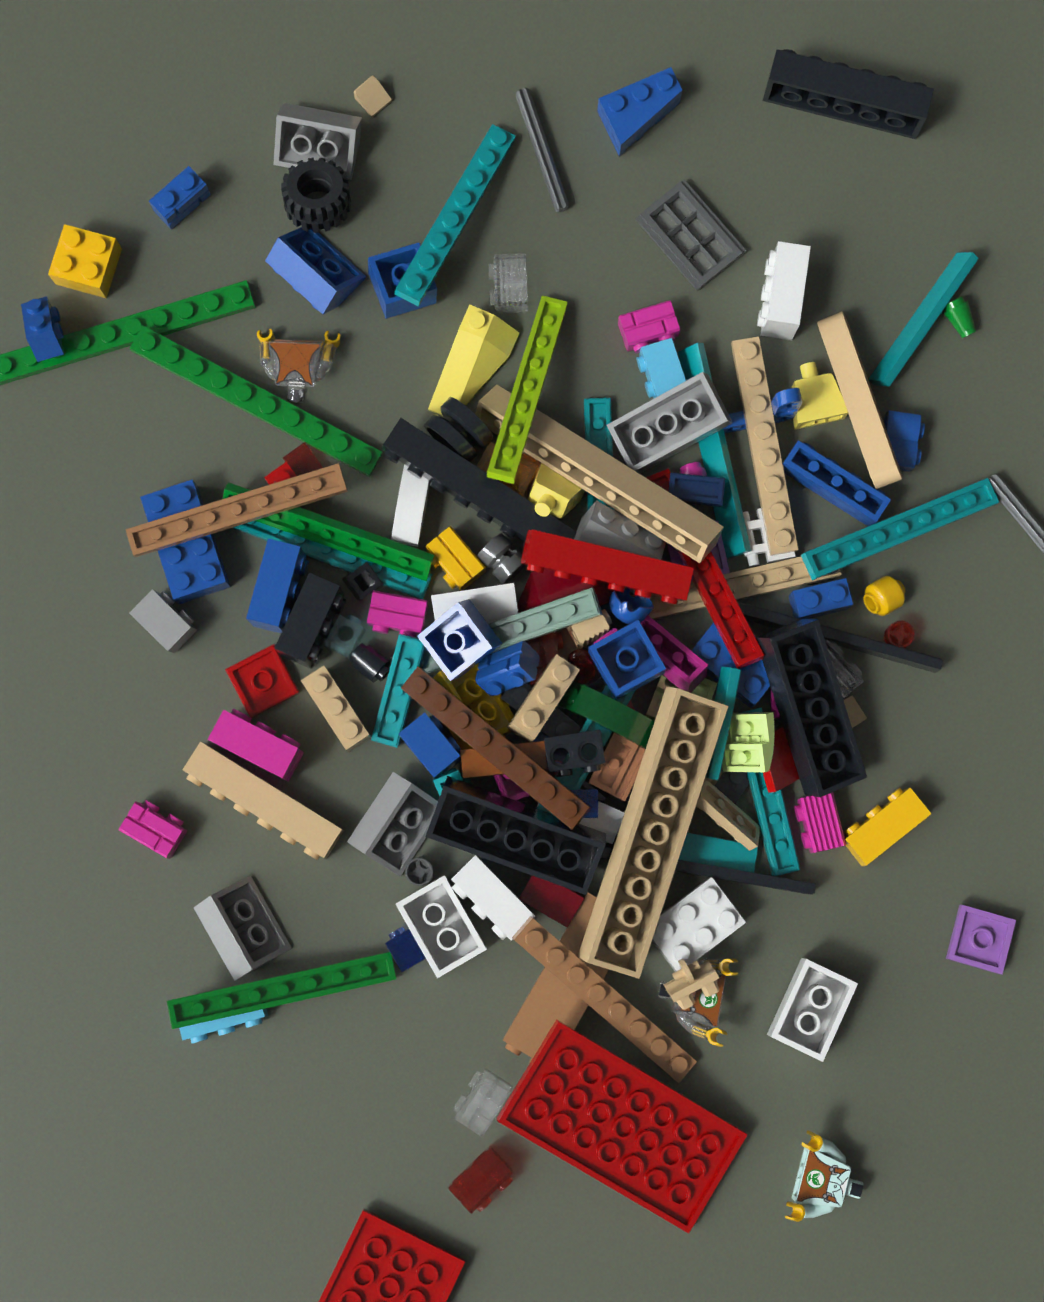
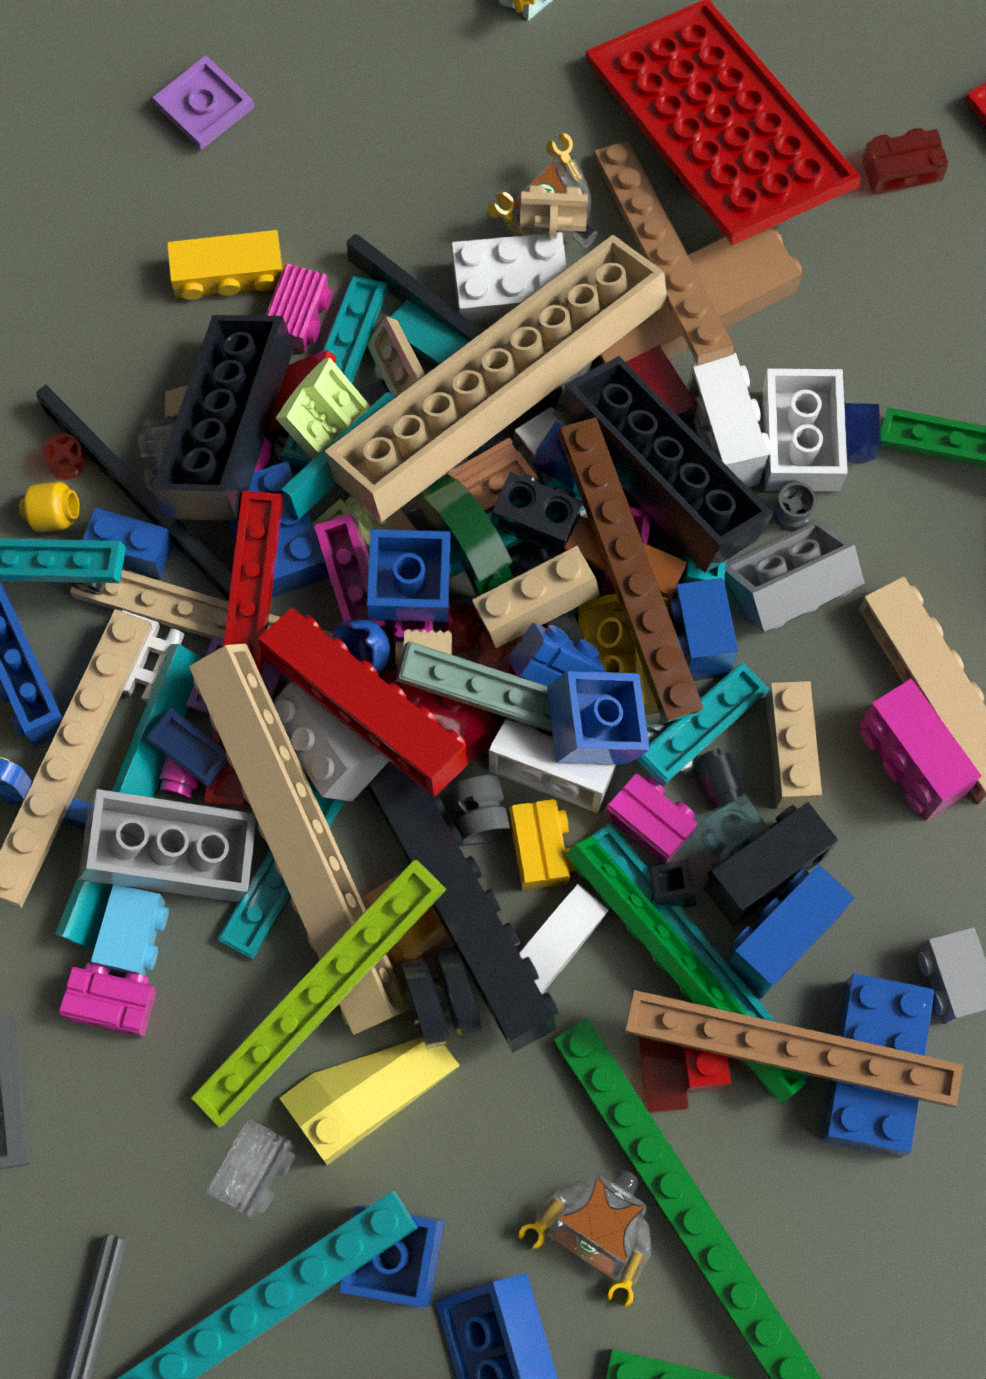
camera: 150 degrees left, 10 degrees down
(262, 681) = (869, 837): red tile -> none
(482, 1102) = (858, 233): clear brick -> none
(553, 493) = (371, 848): light yellow torso -> none
(812, 1009) = (435, 126): white brick -> none

